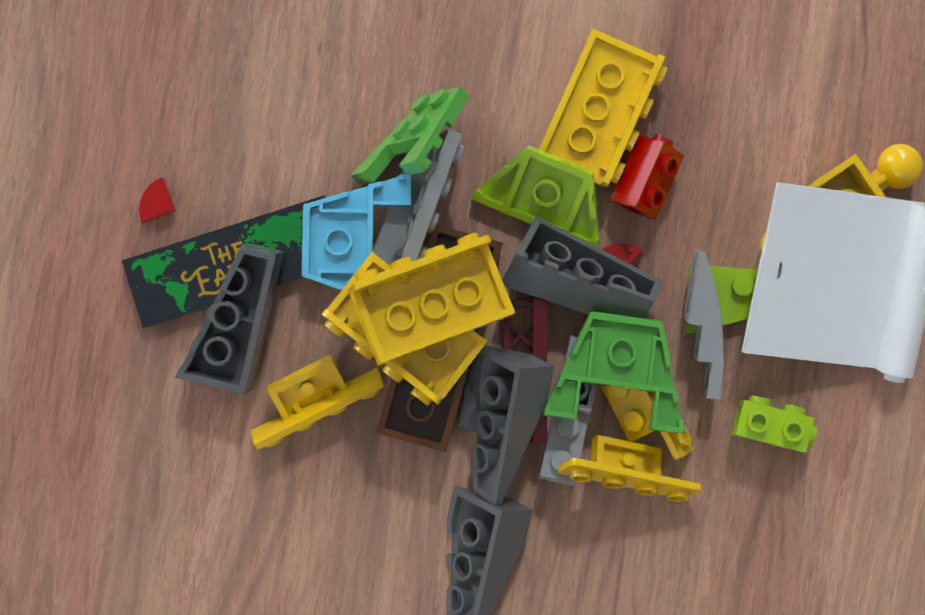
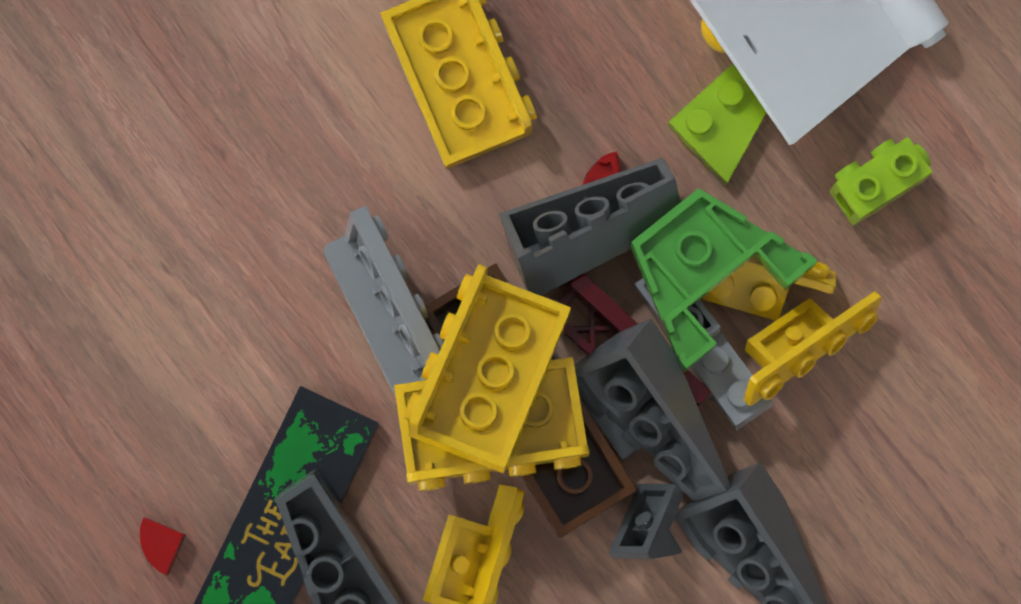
camera: 40 degrees left, 5 degrees down
(341, 229) = (346, 398): medium azure wing -> none
(415, 135) = (324, 247): bright green wing -> none
(432, 476) = (647, 524): none -> dark grey slope
(546, 188) = (480, 182): lime wing -> none
(647, 176) = (556, 85): red brick -> none
(704, 311) = (722, 144): light grey slope -> none

